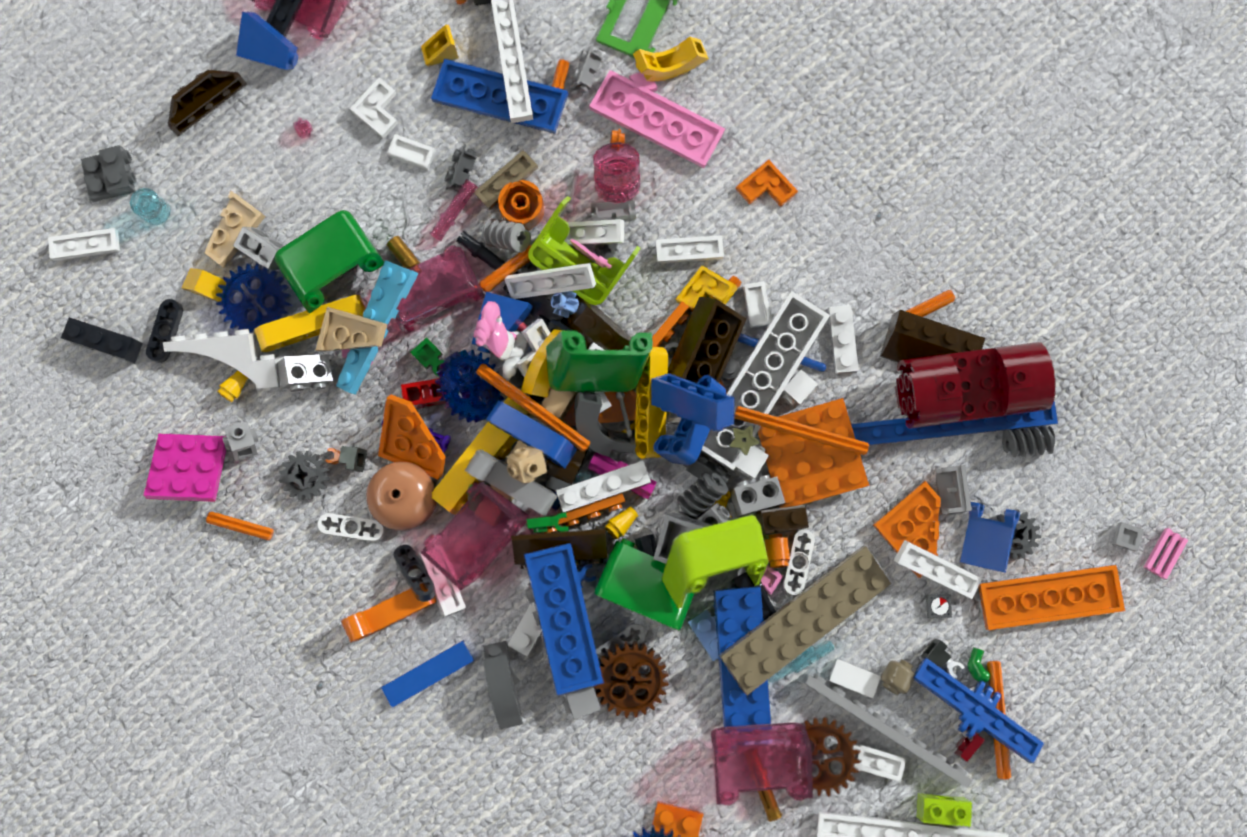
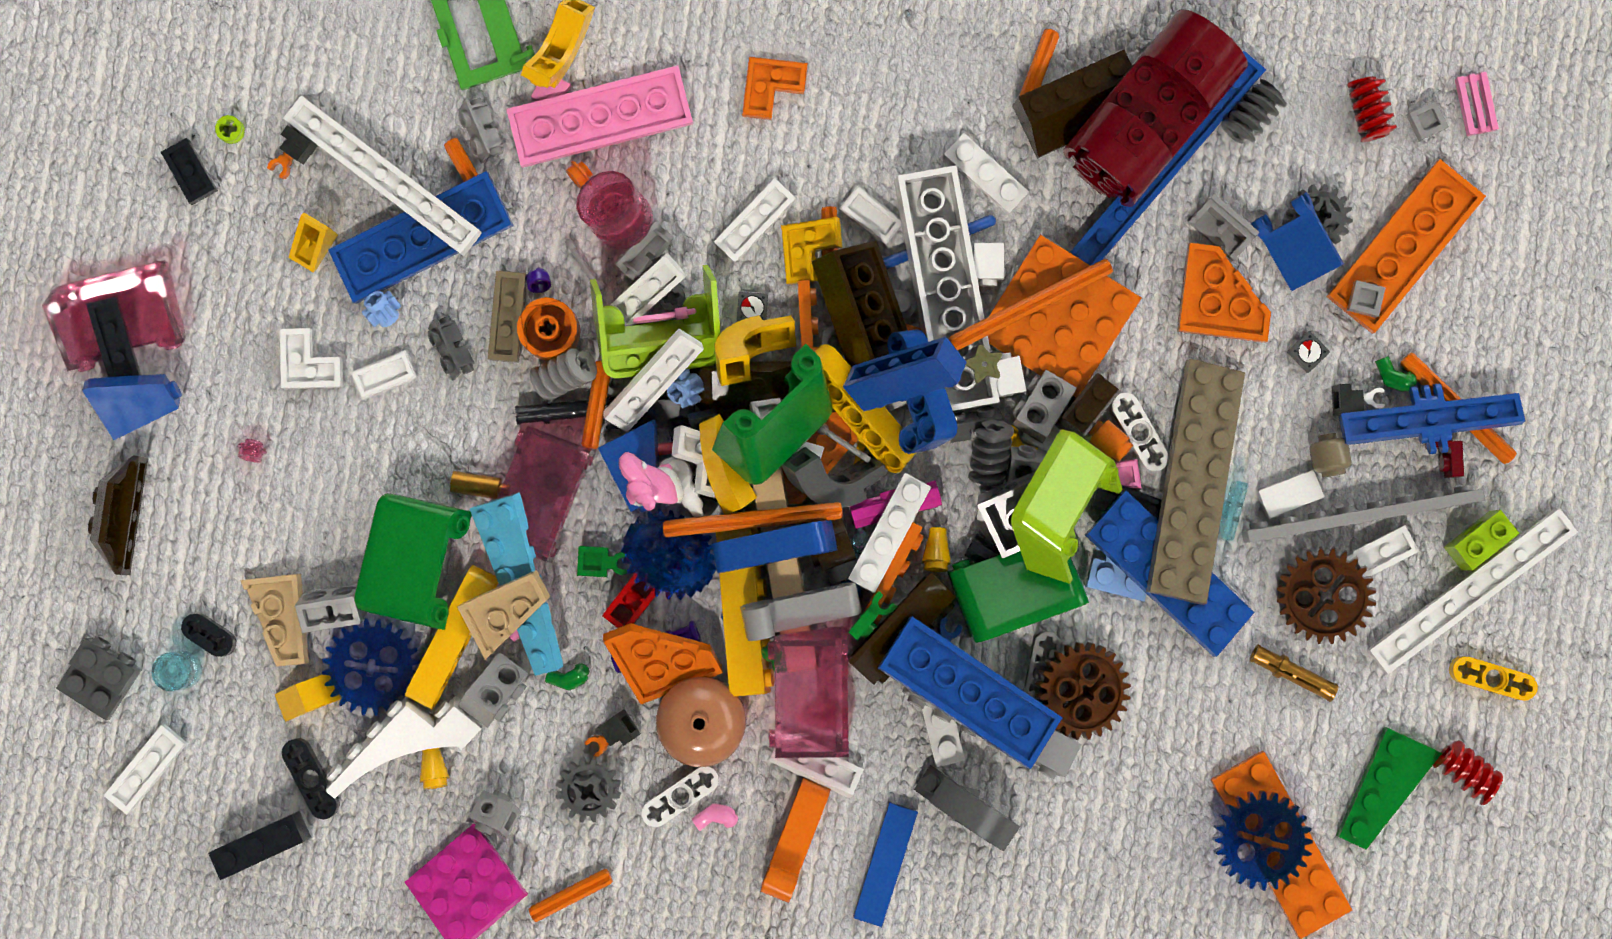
camera: 45 degrees left, 5 degrees up
(182, 205) = (205, 641): none -> black beam
(353, 407) = (569, 680): none -> green arm
(361, 555) = (716, 813): none -> bright pink arm
(414, 582) = (794, 791): black beam -> none
(442, 114) = (381, 308): none -> light blue gear
(448, 218) = (484, 395): clear pink pin -> none
(526, 464) = (801, 580): tan brick -> none
(538, 173) = (533, 282): none -> dark purple hinge
(623, 308) = (747, 339): none -> yellow arch
(644, 295) = (751, 305): none -> tile
(761, 760) = (1274, 651): clear pink windscreen -> none
(937, 569) = (1277, 318): white plate -> none
(1000, 605) = (1366, 298): none -> light grey plate
(1100, 499) = (1372, 108): none -> red piece

